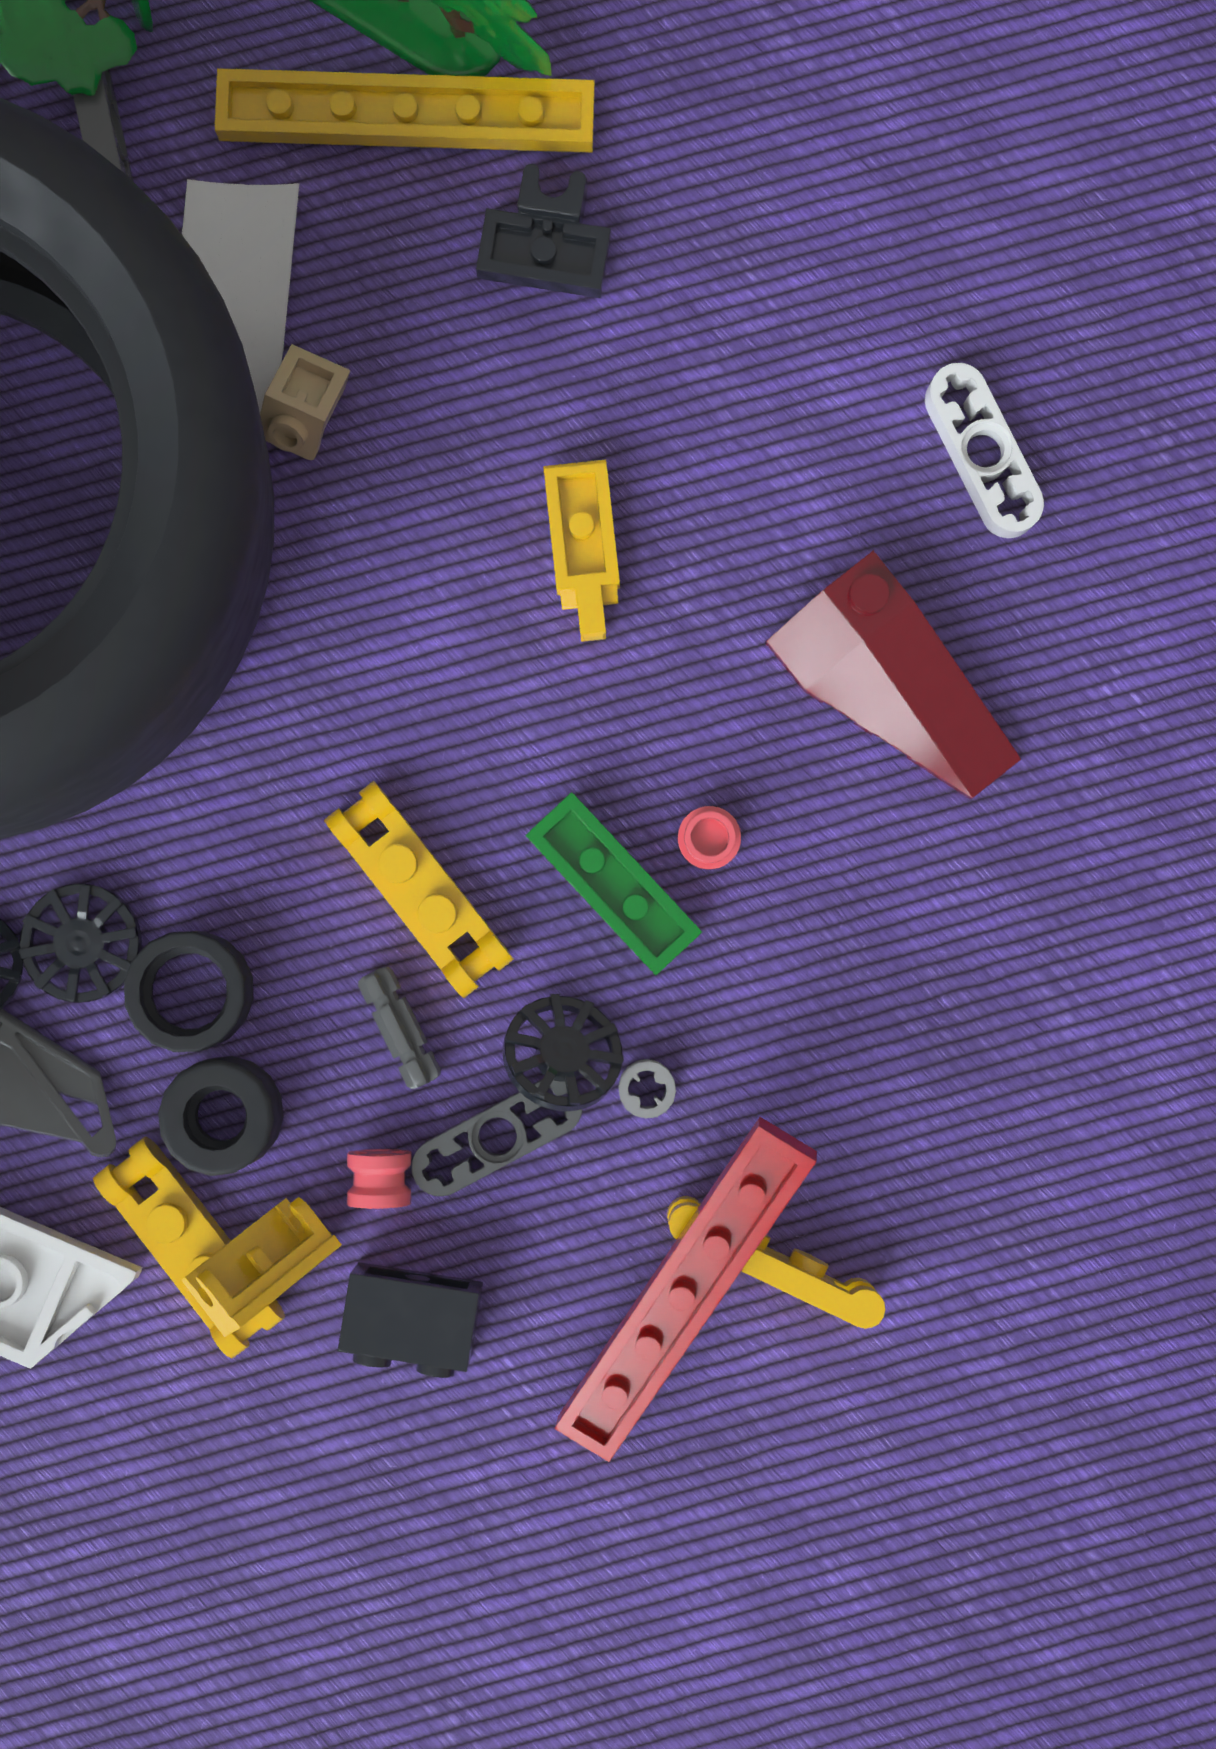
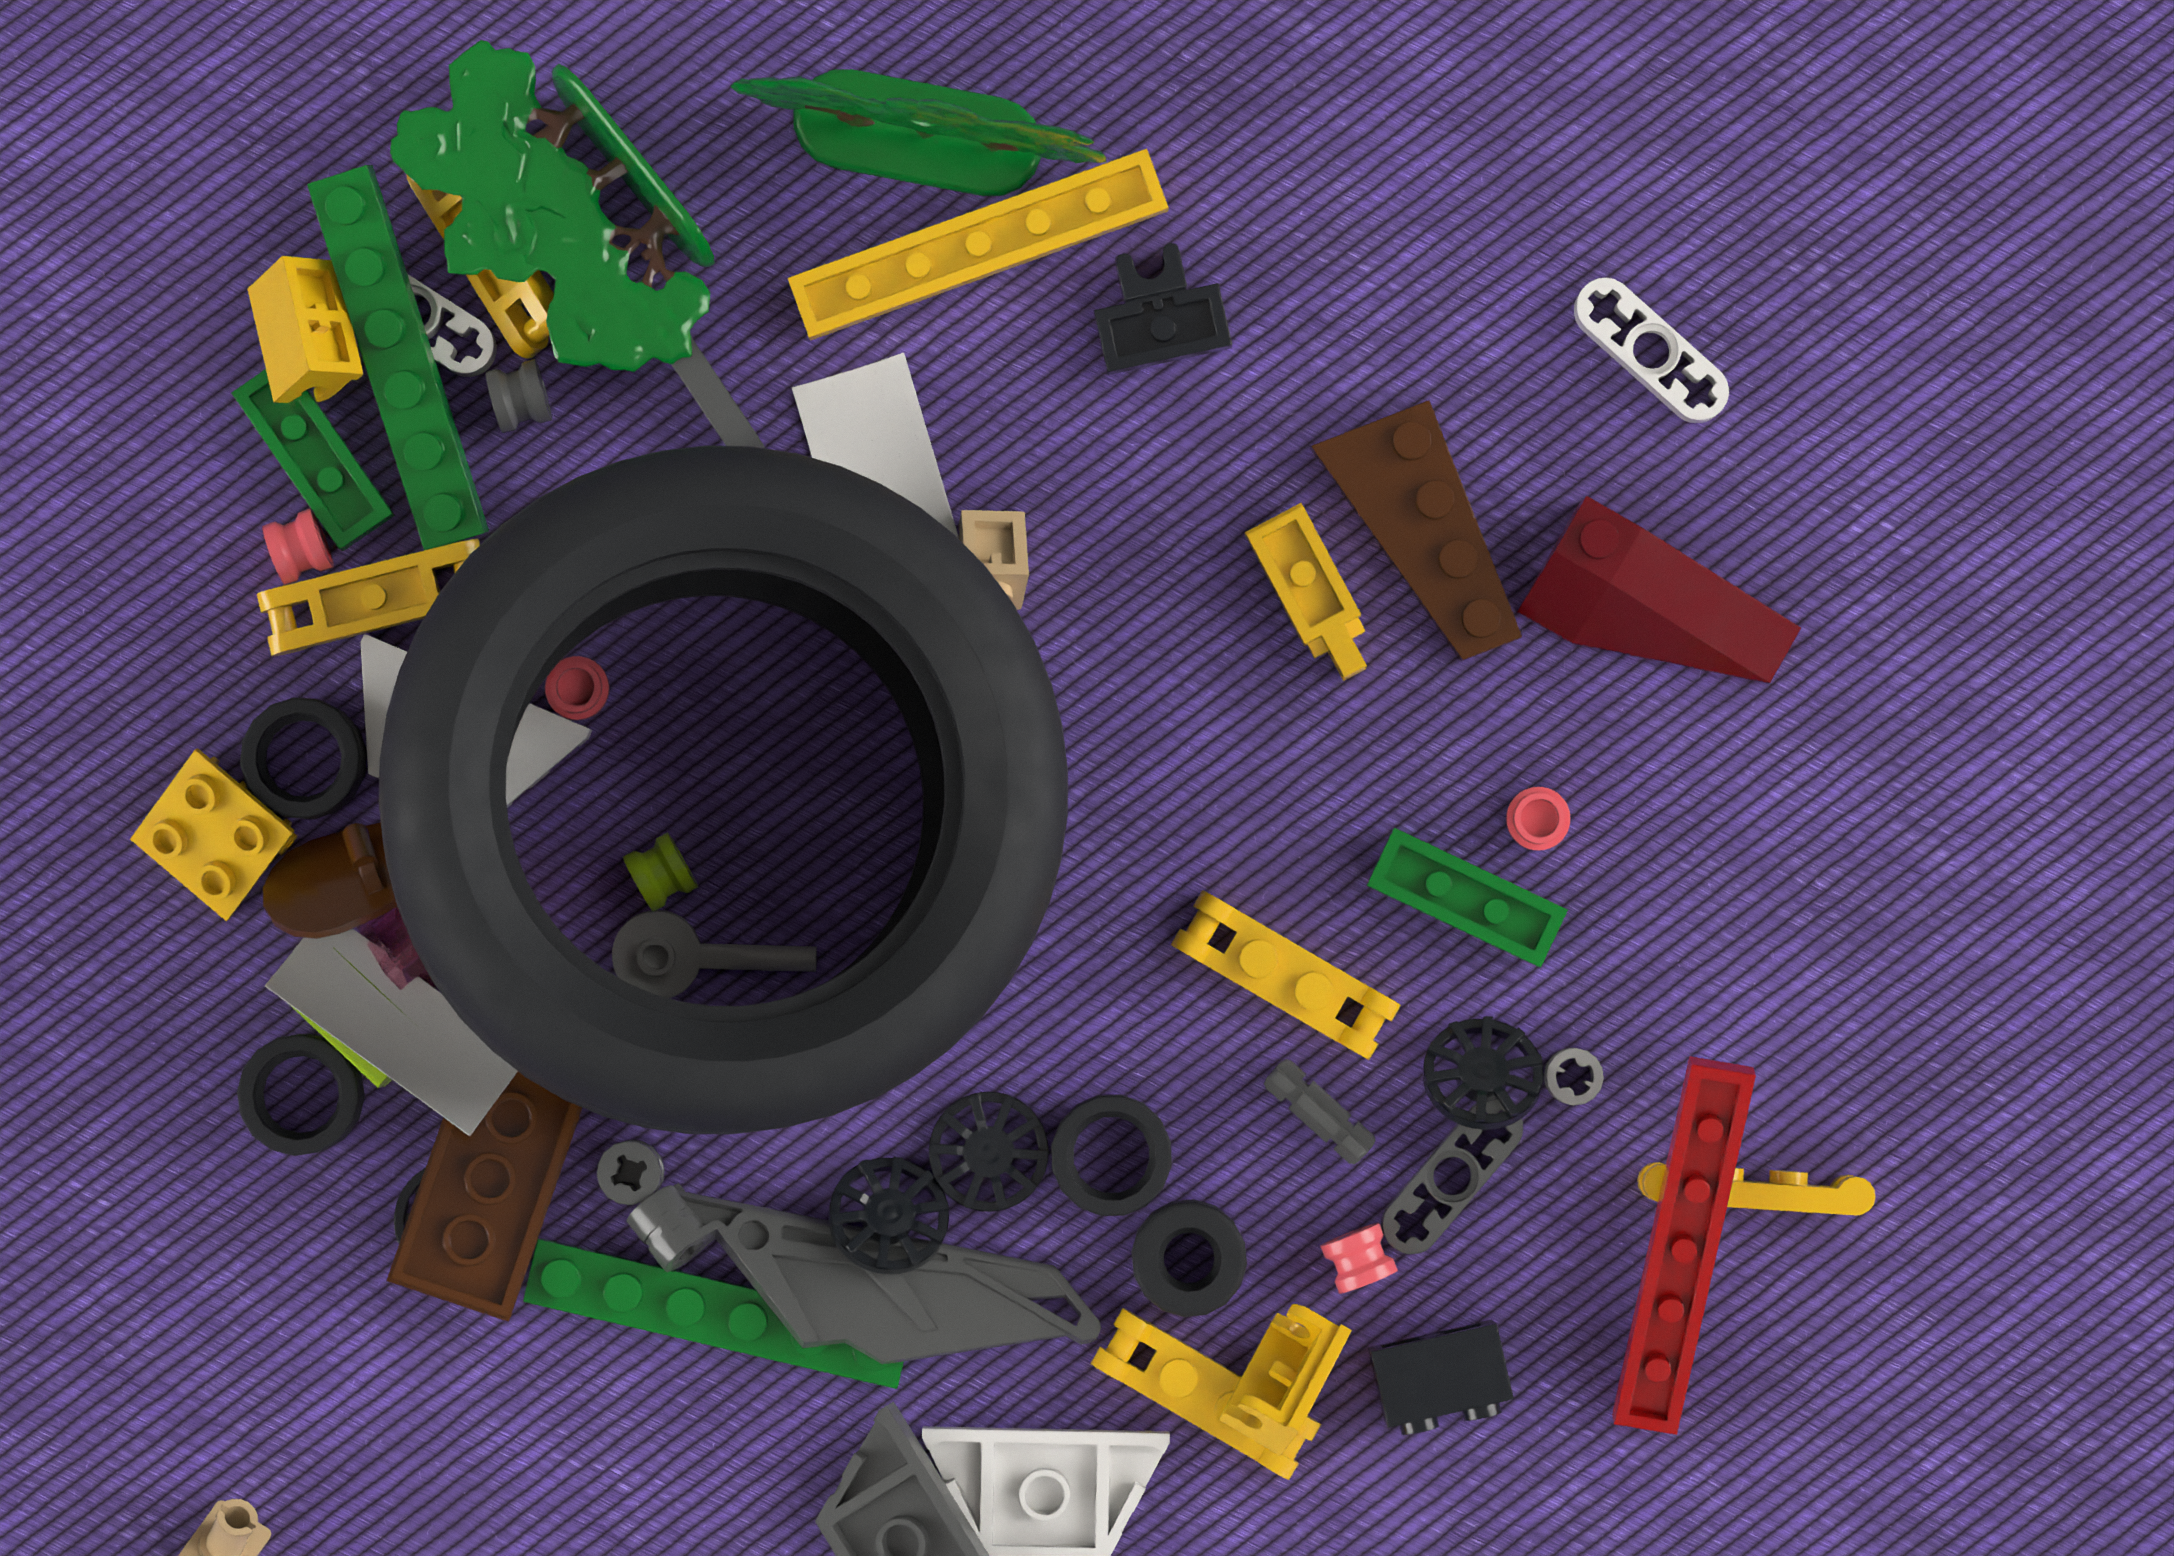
camera: 20 degrees left, 0 degrees up
(711, 515) = (1418, 511): none -> reddish brown wing

